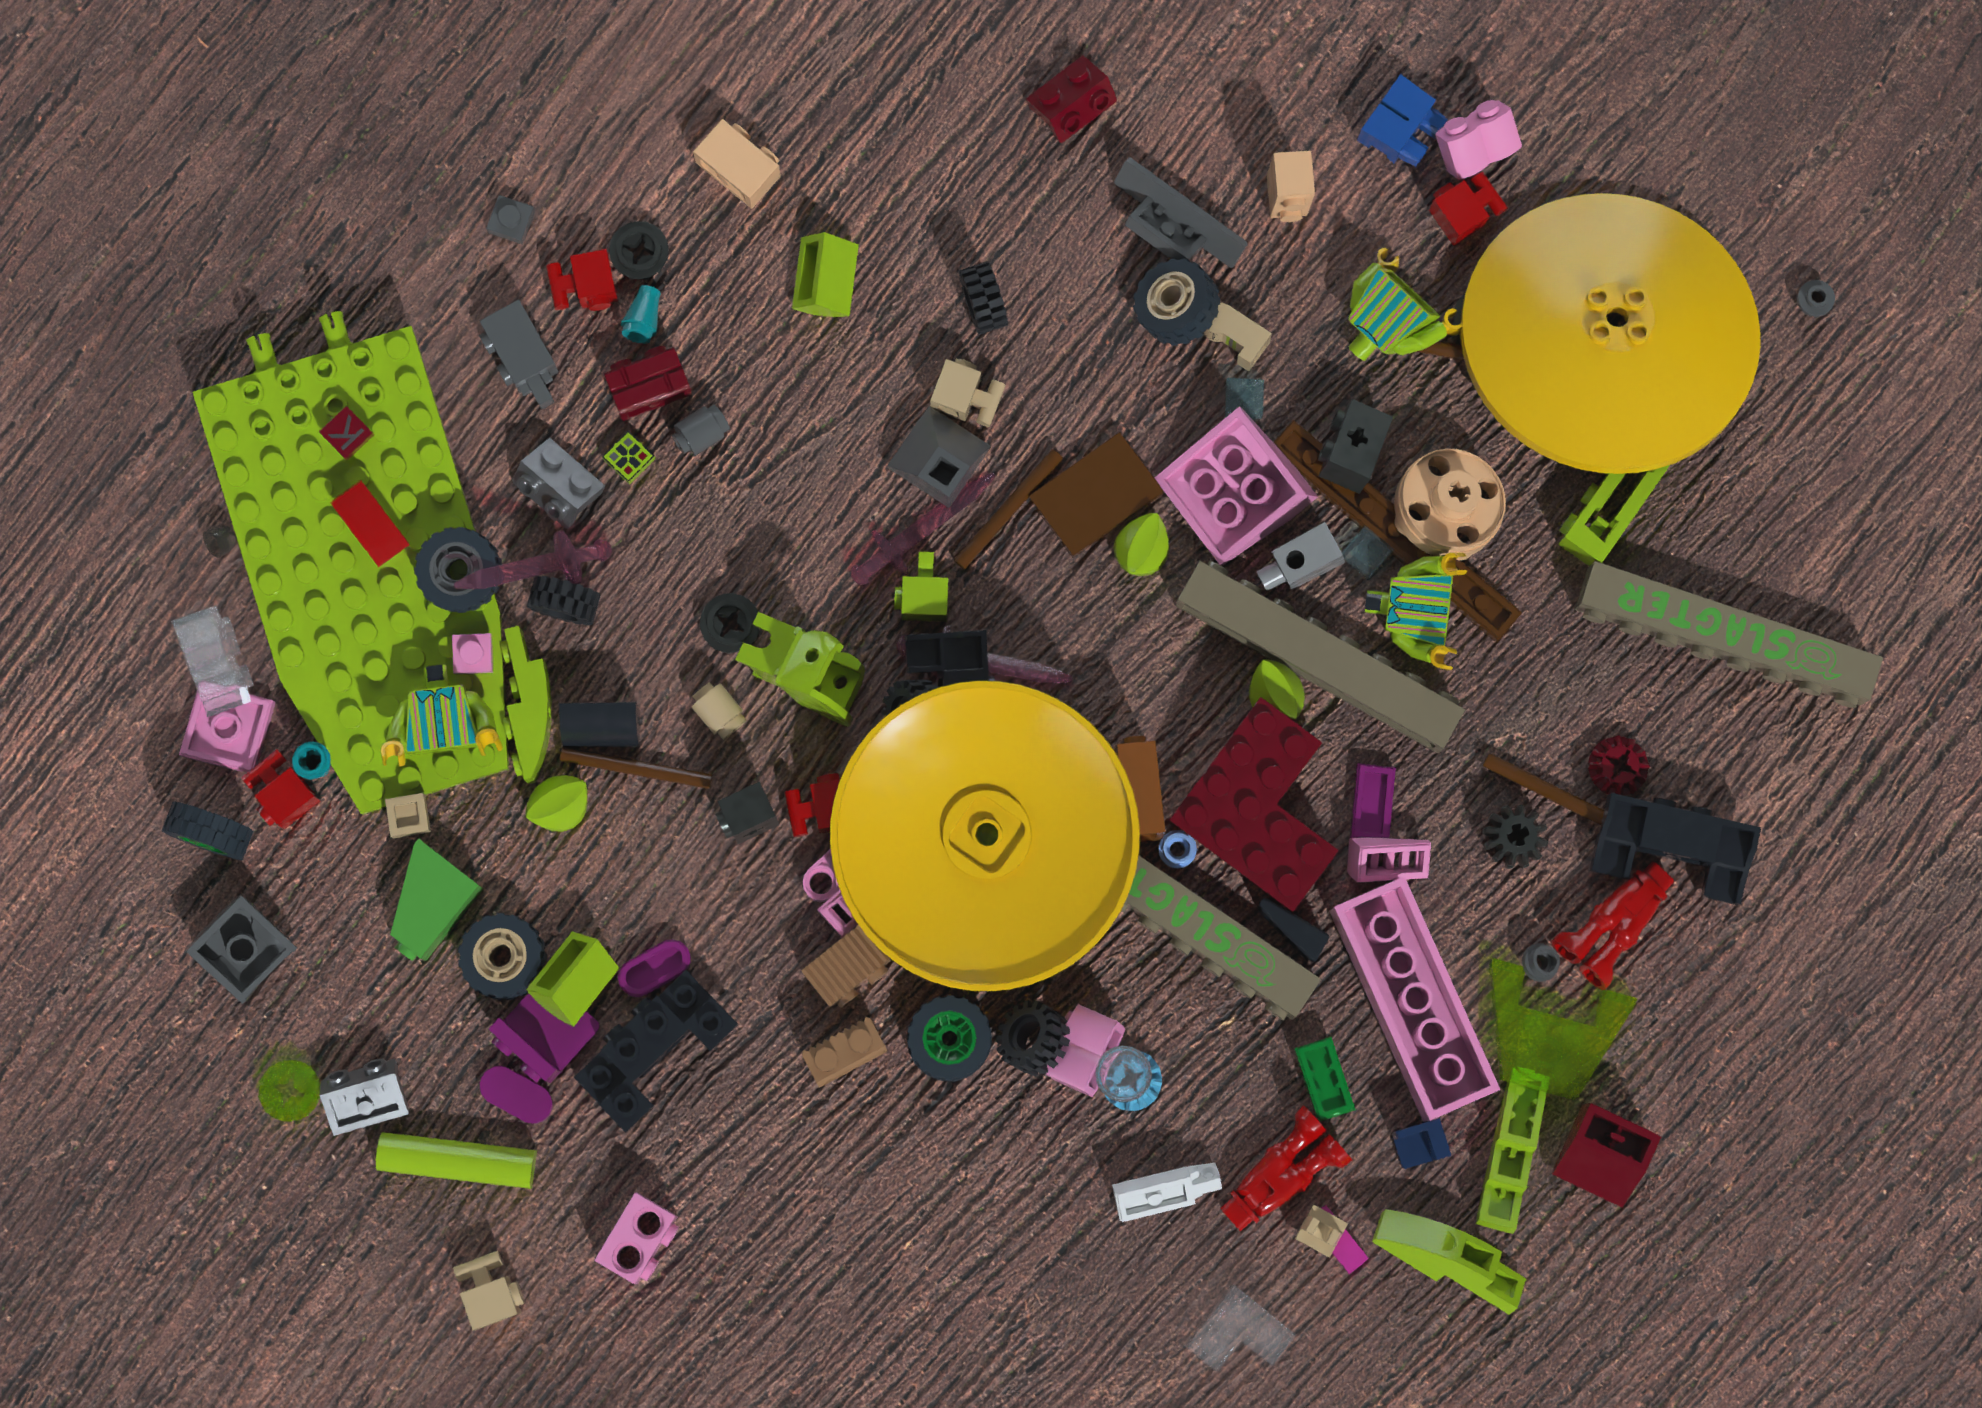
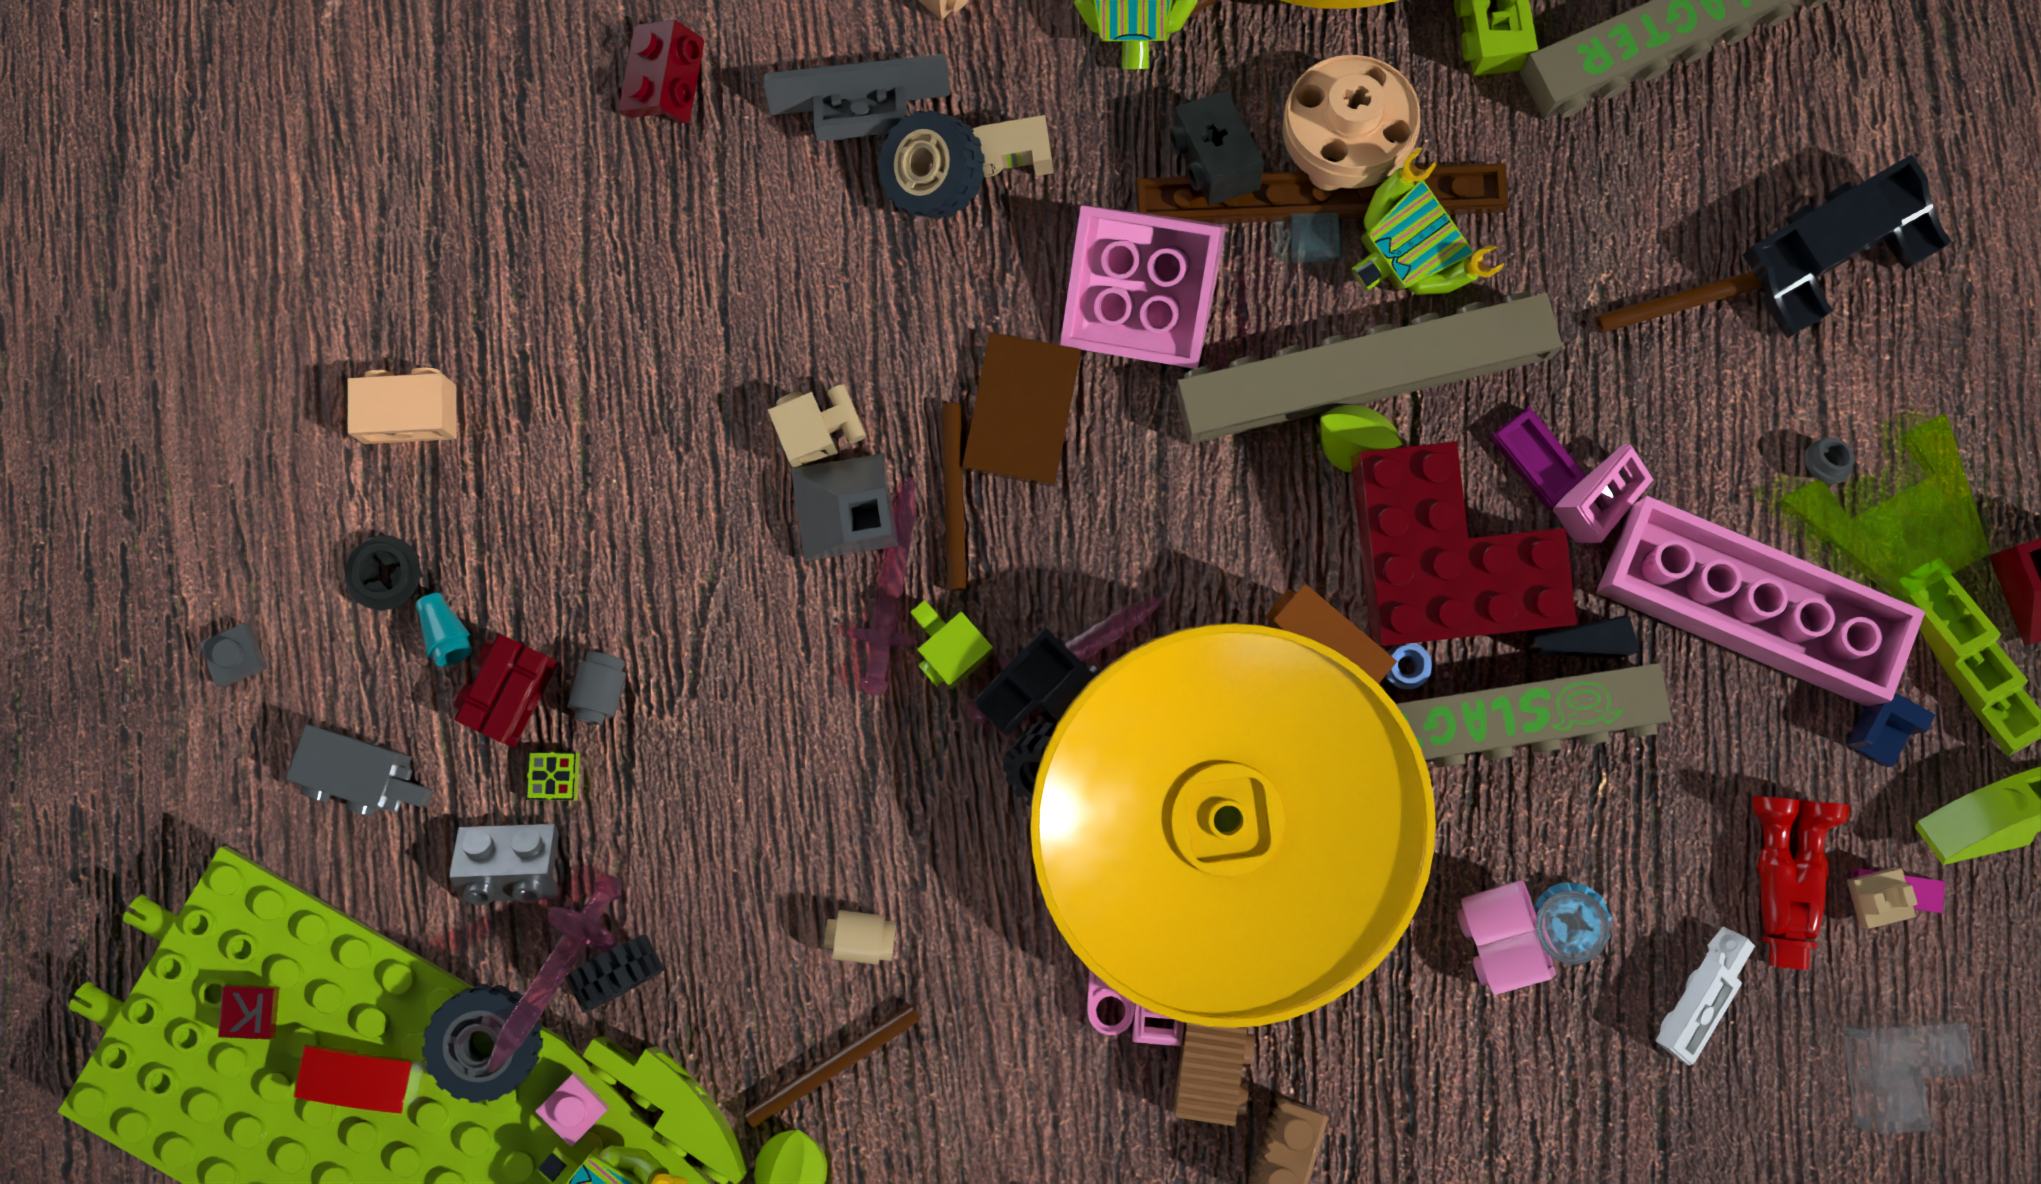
camera: 30 degrees left, 0 degrees up
(590, 279) = (360, 642): red brick -> none
(600, 724) = (760, 1059): black brick -> none
(727, 606) = (776, 830): pearl dark grey gear -> none
(746, 813) = (981, 1015): pearl dark grey brick -> none
(806, 667) = (888, 831): lime piece -> none
(820, 808) = (1045, 938): red brick -> none
(825, 275) = (582, 436): lime brick -> none
(968, 1025) = (1399, 1044): black wheel -> none
(983, 297) = (749, 322): black tyre -> none
(1047, 1045) = (1429, 983): black tyre -> none
(1142, 545) = (1107, 416): lime piece -> none
(1244, 394) = (1068, 195): clear light blue tile -> none
(1319, 555) = (1275, 276): light grey torso -> none
(1324, 1079) = (1745, 752): green plate -> none
(1526, 846) = (1713, 370): pearl dark grey gear -> none
(1602, 770) = (1712, 238): dark red gear -> none
(1624, 916) = (1859, 349): red piece -> none

